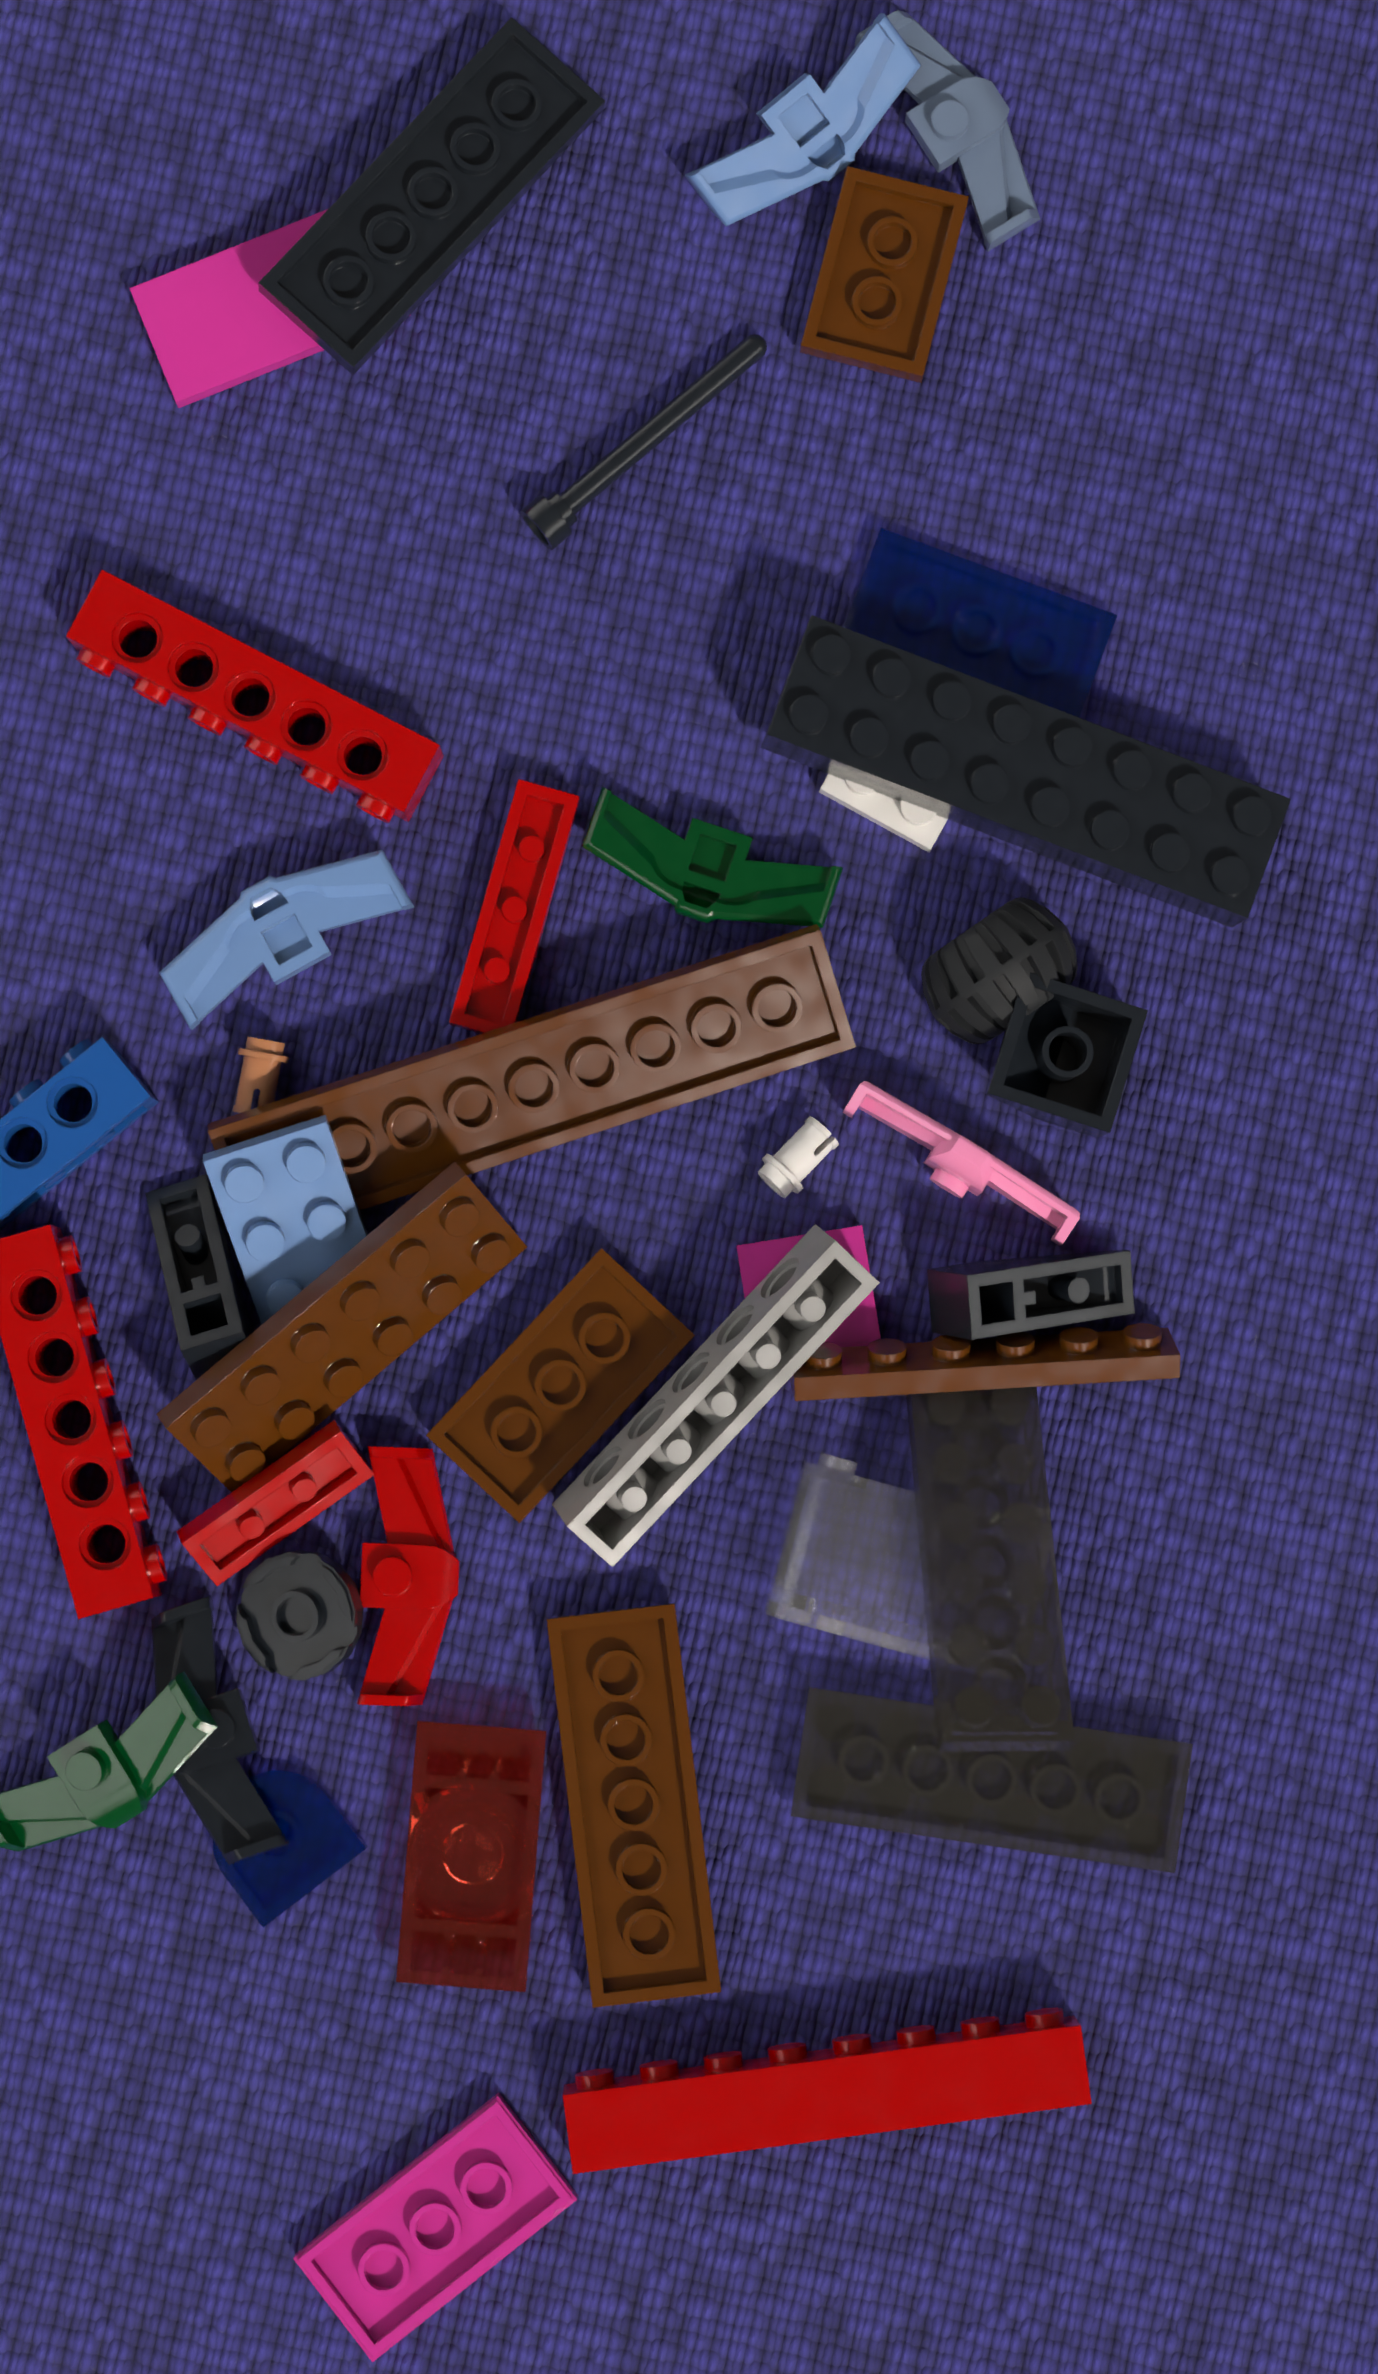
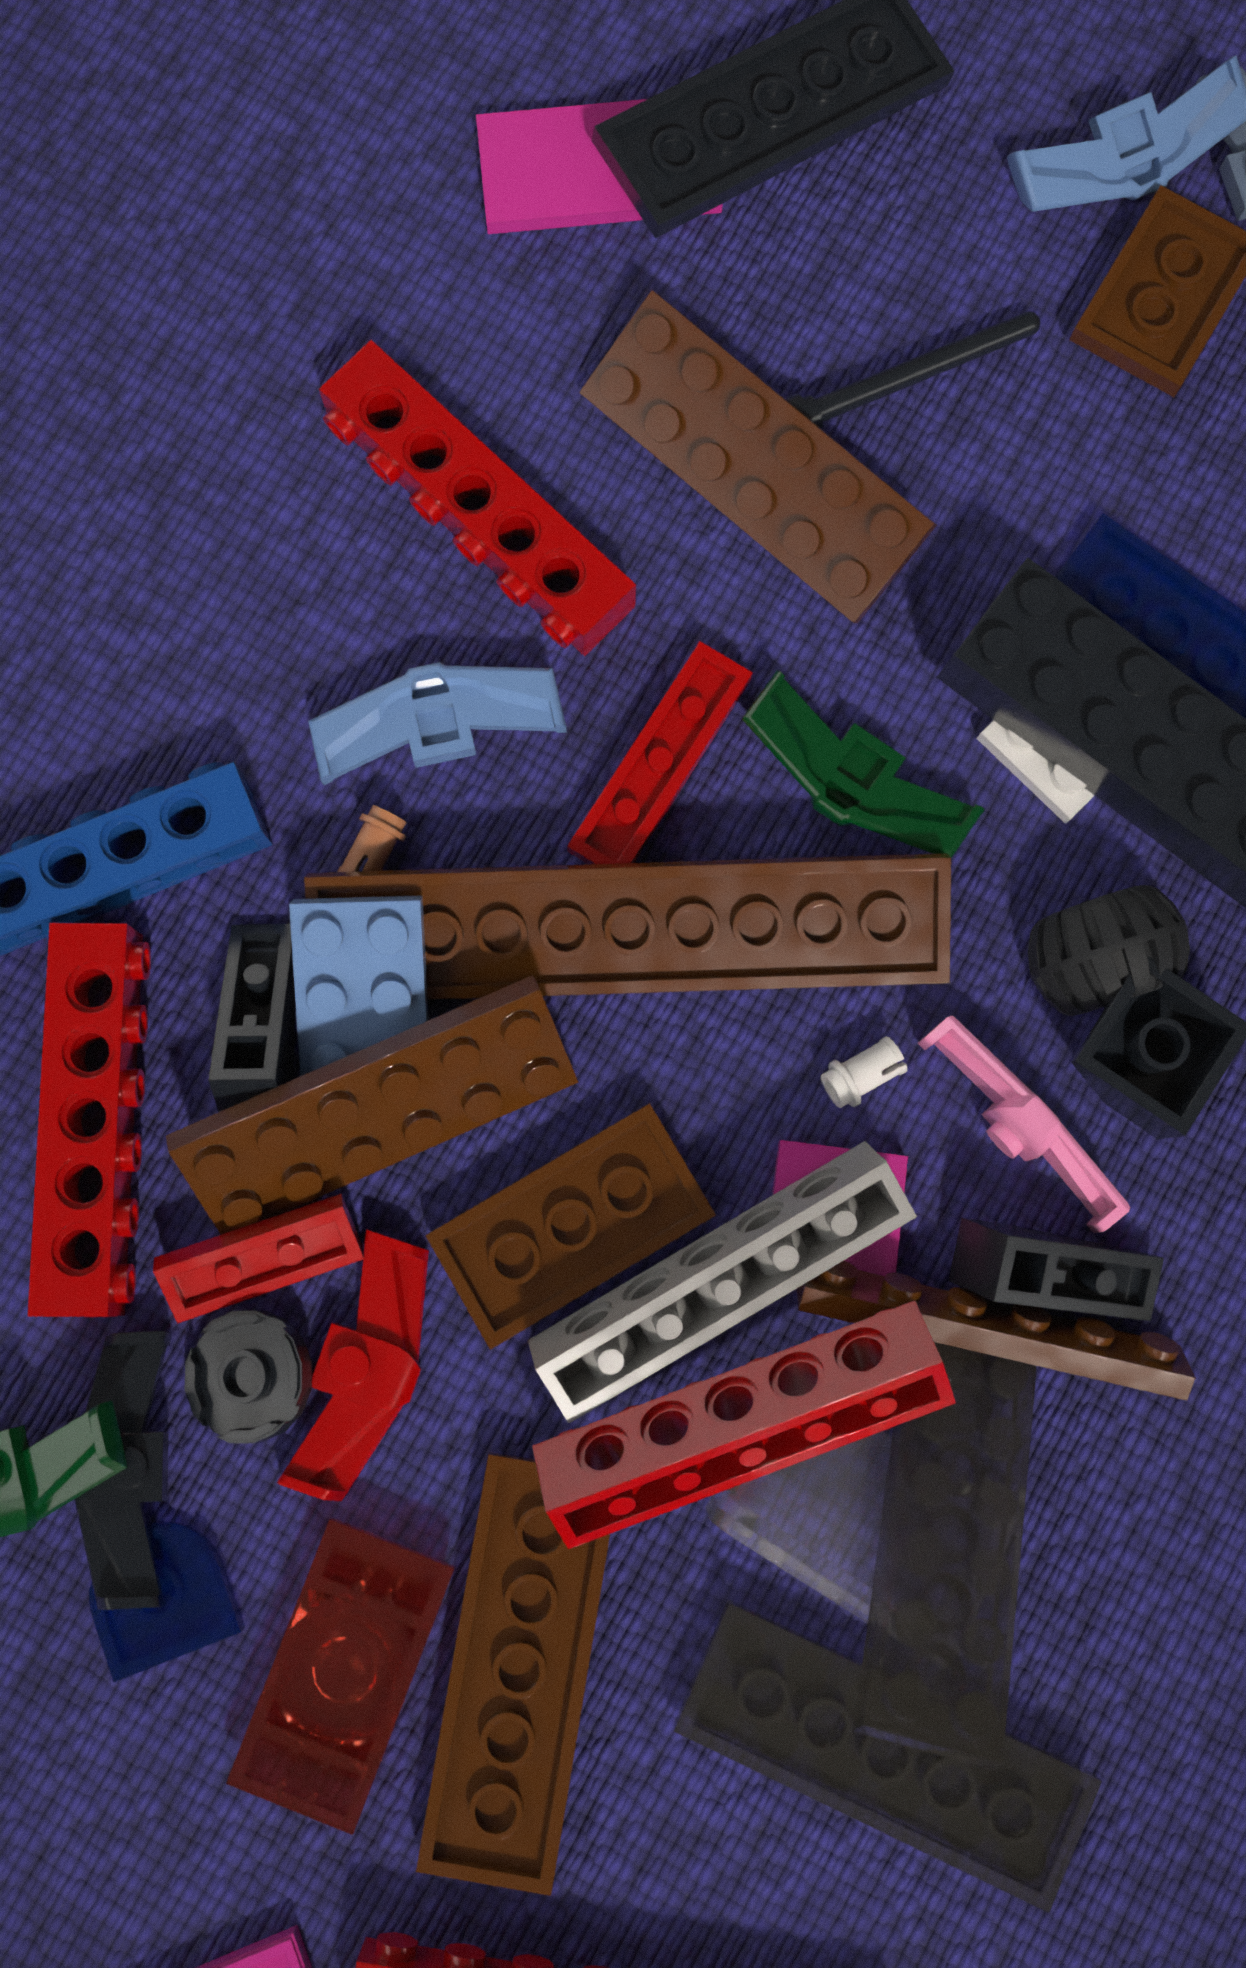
camera: 15 degrees right, 5 degrees down
(519, 574) = (756, 458): none -> reddish brown plate
(769, 1520) = (741, 1425): none -> red brick

